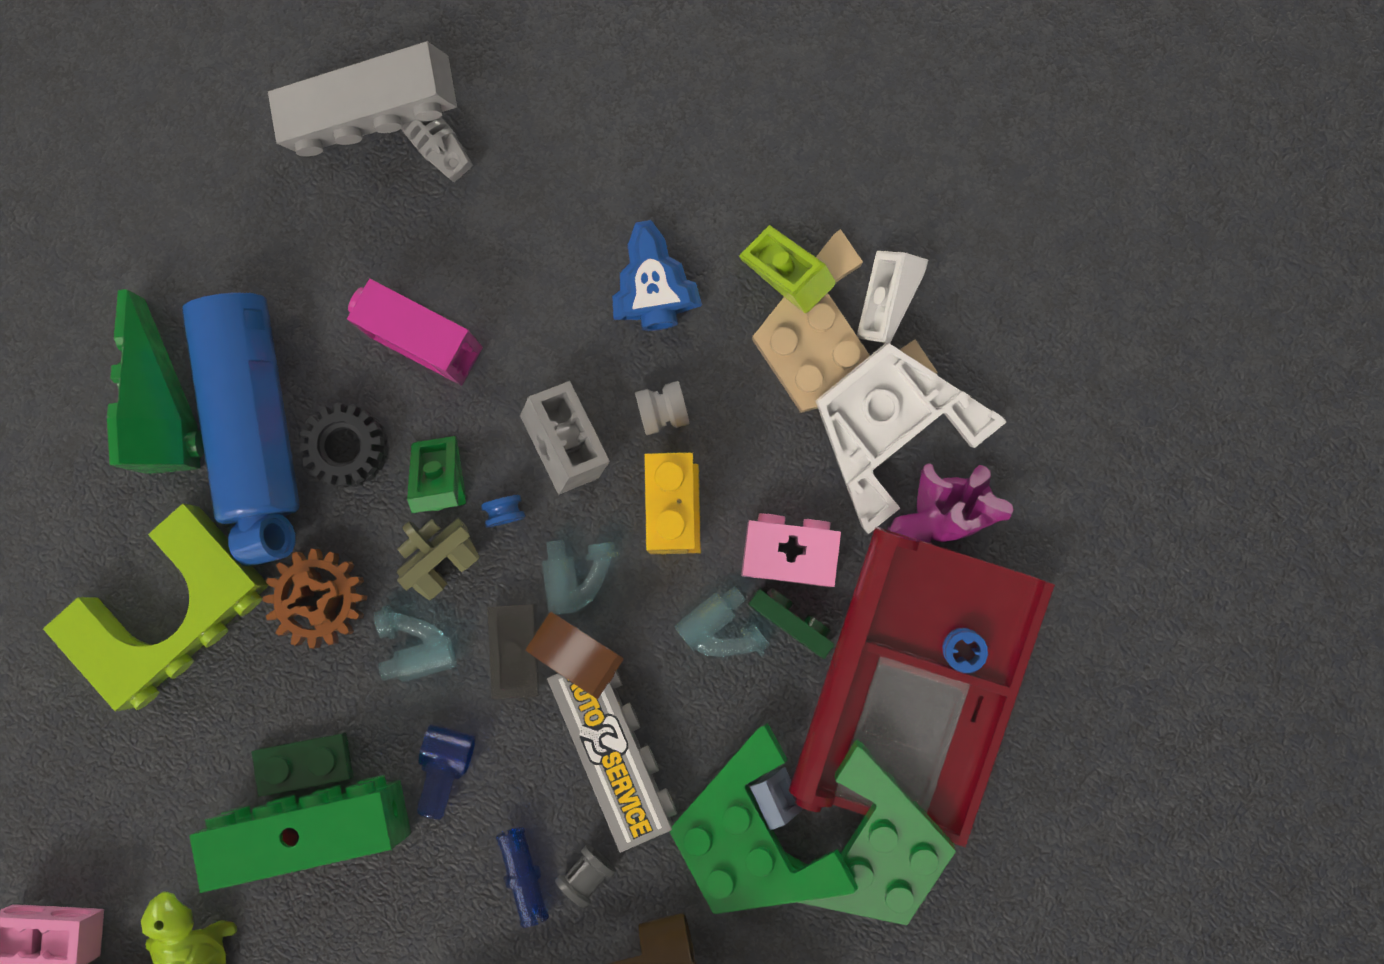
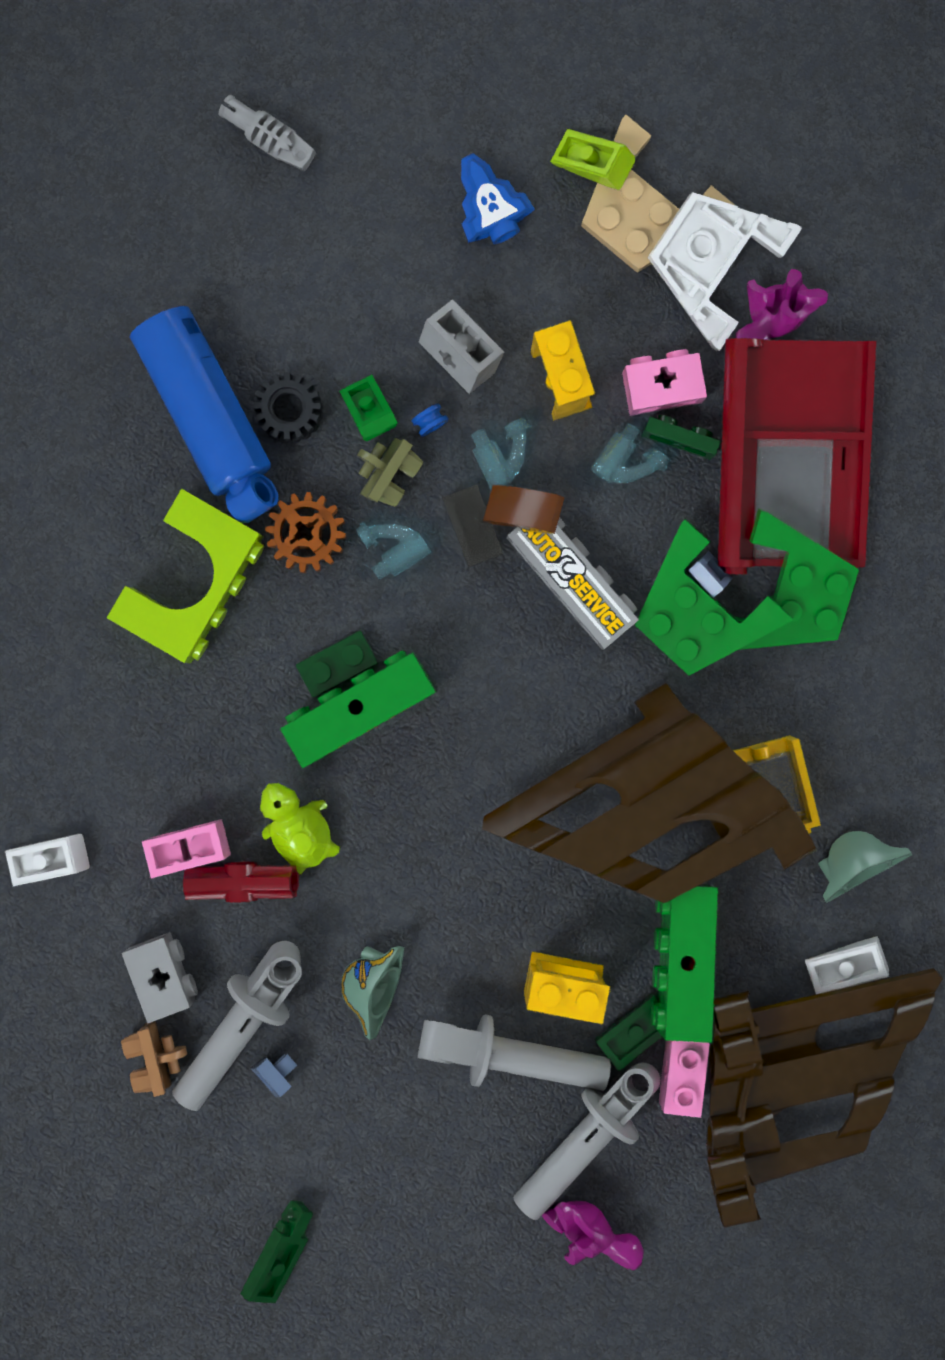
camera: 20 degrees left, 5 degrees up
(152, 421) = (134, 433): green wedge -> none
(363, 99) = (215, 124): light grey brick -> none
(414, 331) = (317, 298): dark pink window -> none
(444, 757) = (446, 622): clear blue axle -> none
(522, 877) = (534, 694): clear blue pin -> none
(585, 876) = (582, 678): dark grey bush -> none
(660, 408) = (526, 302): light grey wheel -> none
(889, 293) = (680, 154): white slope -> none
(968, 637) = (821, 402): blue bush -> none

